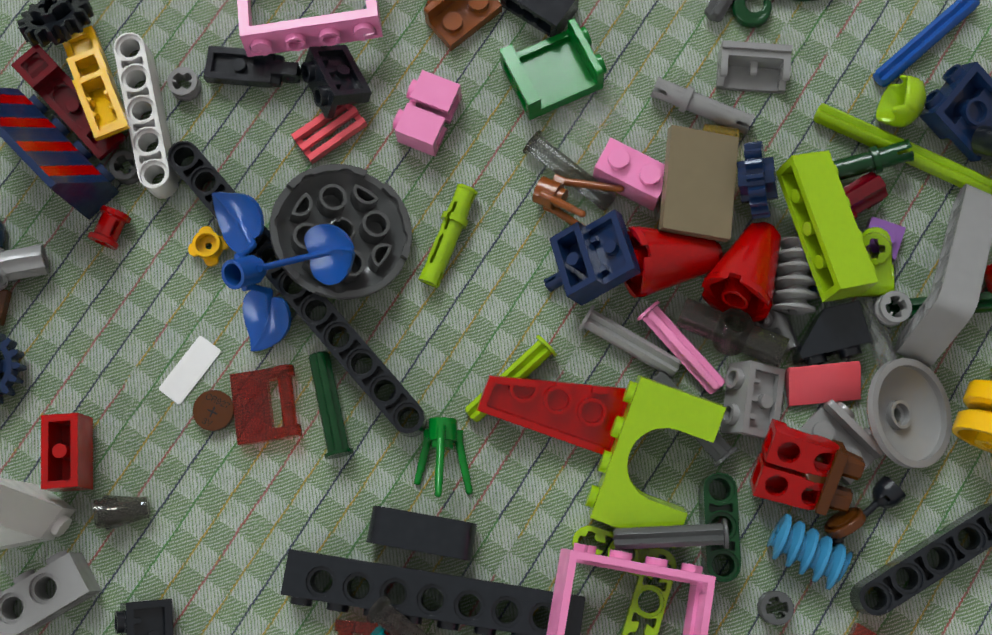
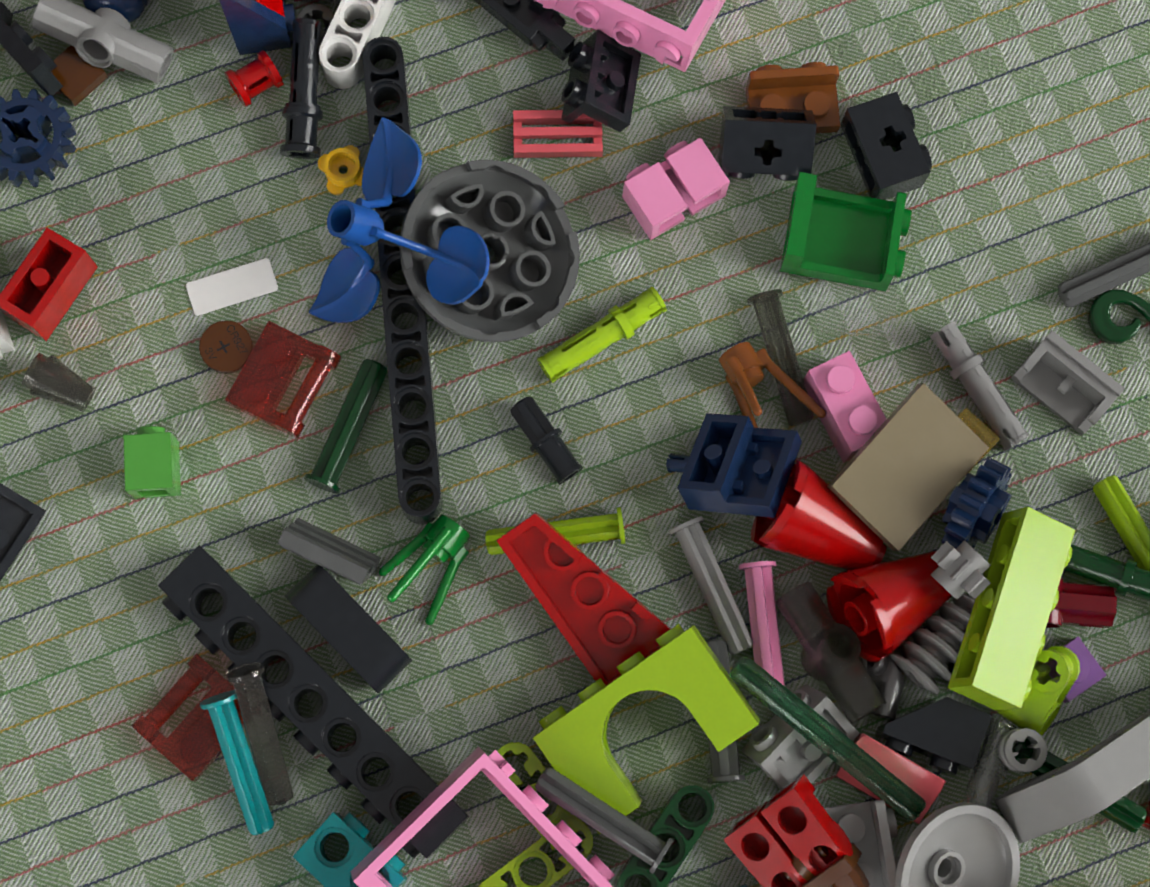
camera: 25 degrees right, 0 degrees up
(155, 226) = (302, 110): none -> black pin
(219, 518) = (152, 463): none -> bright green brick
(374, 493) = (329, 551): none -> dark grey tile
(447, 45) = (748, 128): none -> black brick
(460, 325) = (545, 439): none -> black axle
(770, 386) = (827, 738): none -> clear green axle
(778, 223) = (960, 570): none -> light grey gear

